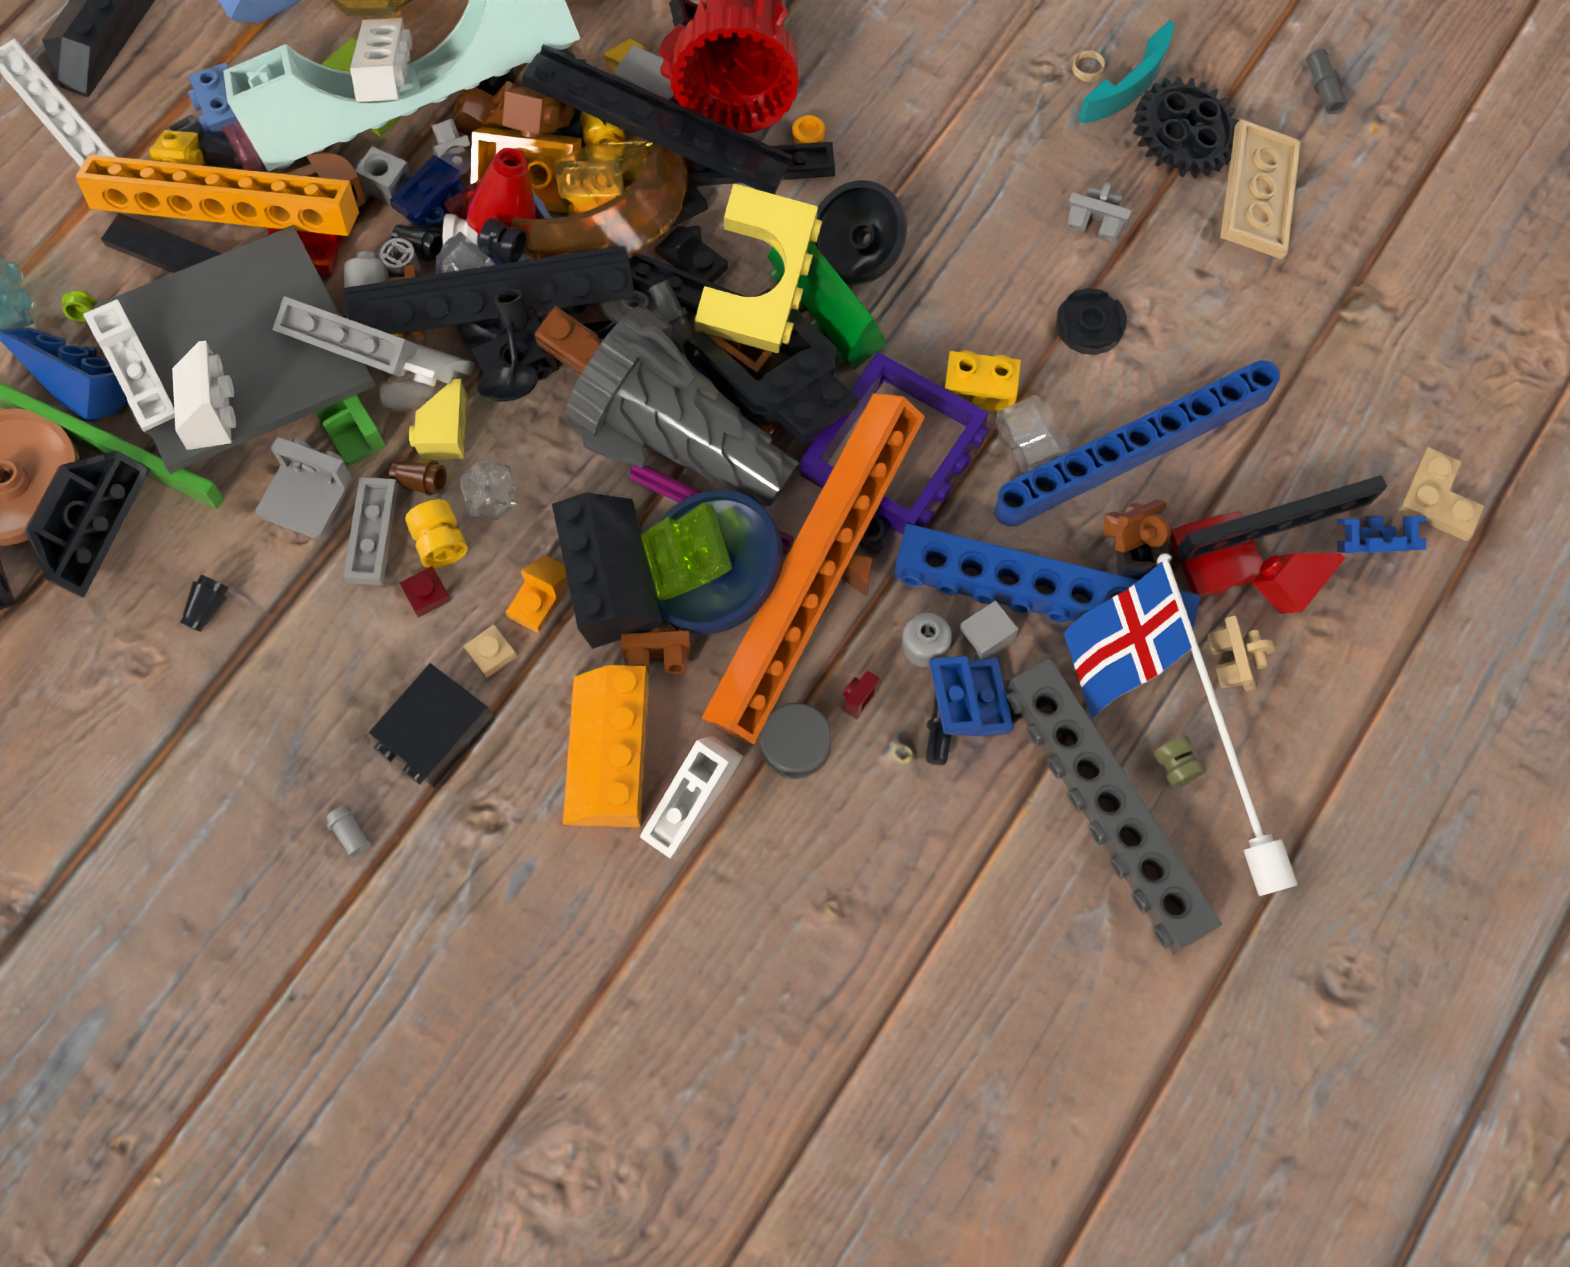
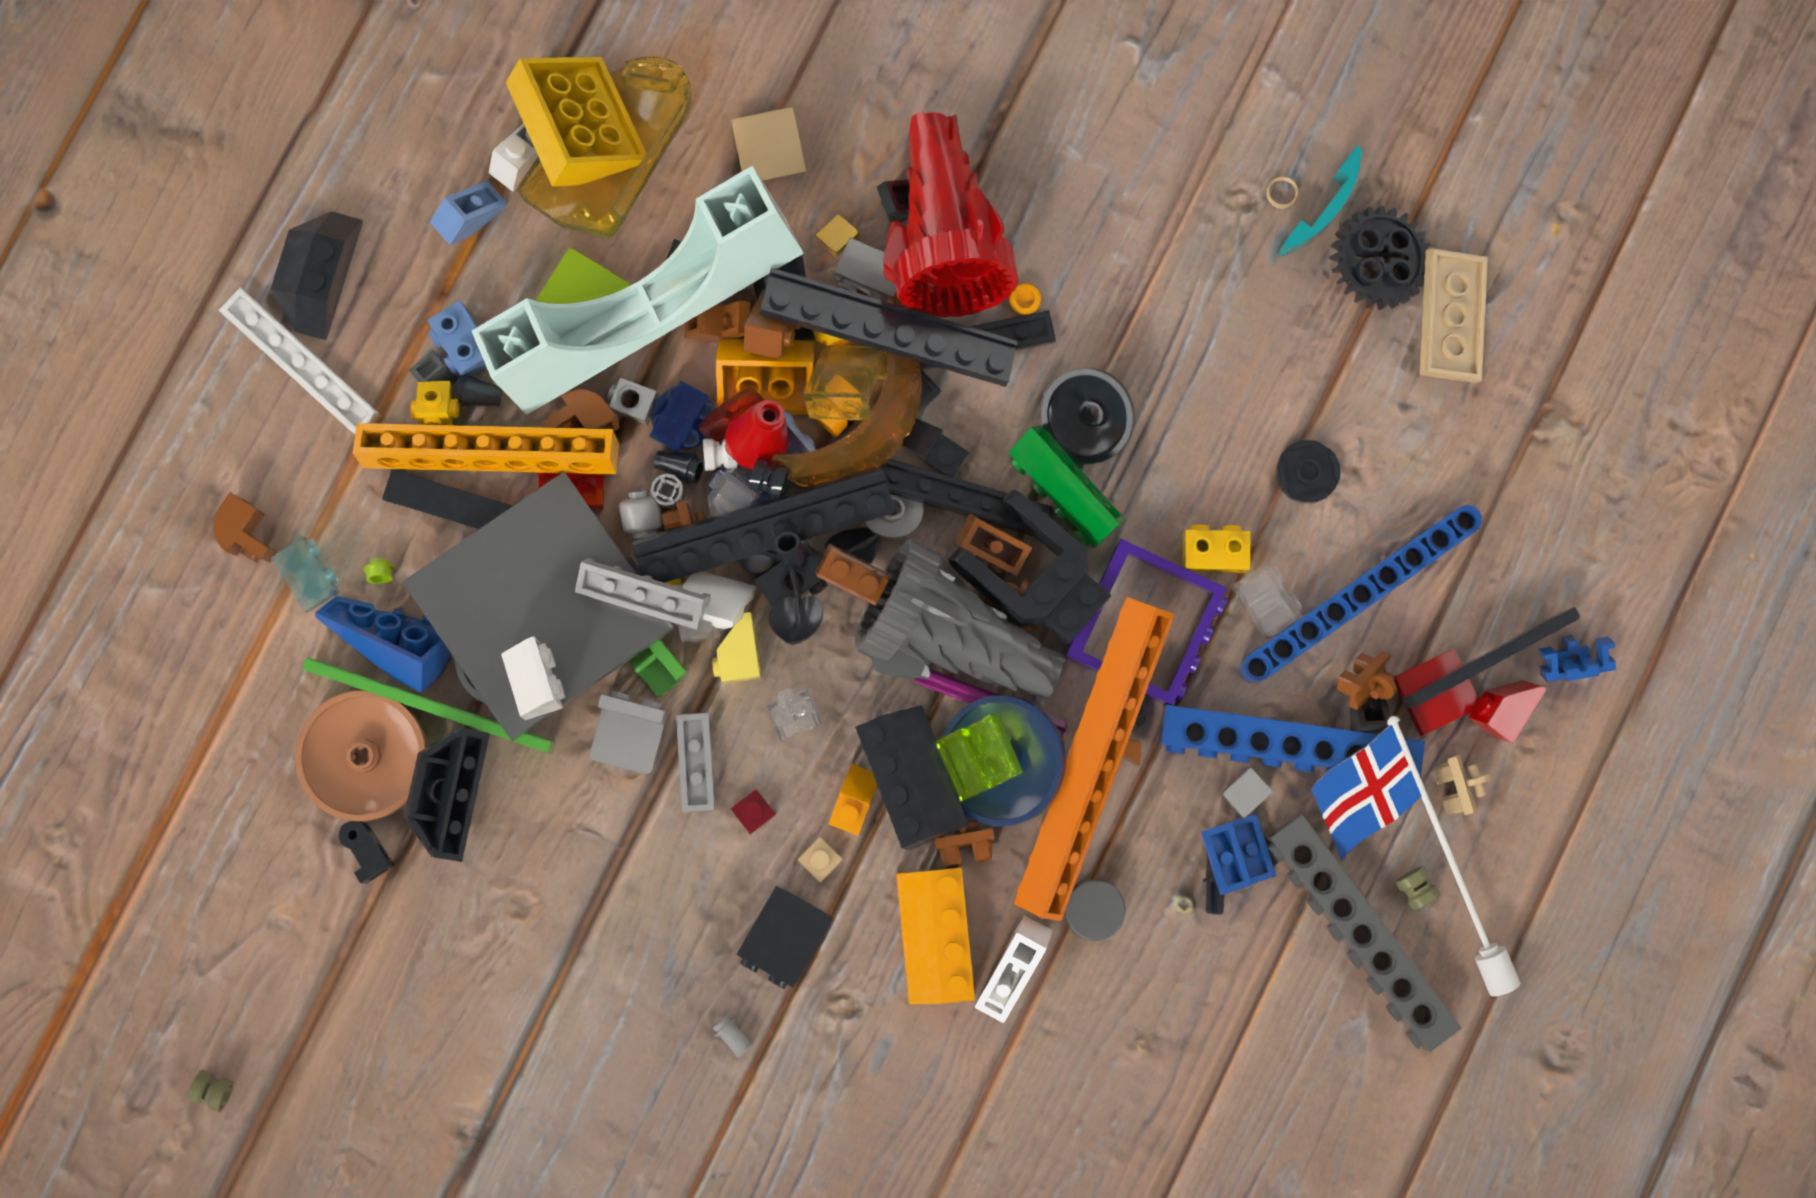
camera: 10 degrees left, 15 degrees up
(130, 365) = (459, 649): white slope -> none
(203, 602) = (563, 848): black cone -> none
(243, 148) = (502, 402): clear pink pin -> none
(380, 59) = (615, 294): white brick -> none
(422, 475) = (727, 704): reddish brown cone -> none
(436, 533) = (755, 761): yellow wheel -> none
(451, 145) = (691, 363): light grey hips -> none
(672, 312) = (931, 520): dark grey pin -> none
(789, 229) = (1023, 534): light yellow arch -> none
(860, 693) = (1143, 861): dark red plate -> none
(926, 638) = (1186, 815): light grey head -> none
(1112, 216) = (1319, 365): light grey hips -> none
(1326, 81) = (1508, 187): dark grey pin -> none
(1431, 496) = (1617, 610): tan plate -> none

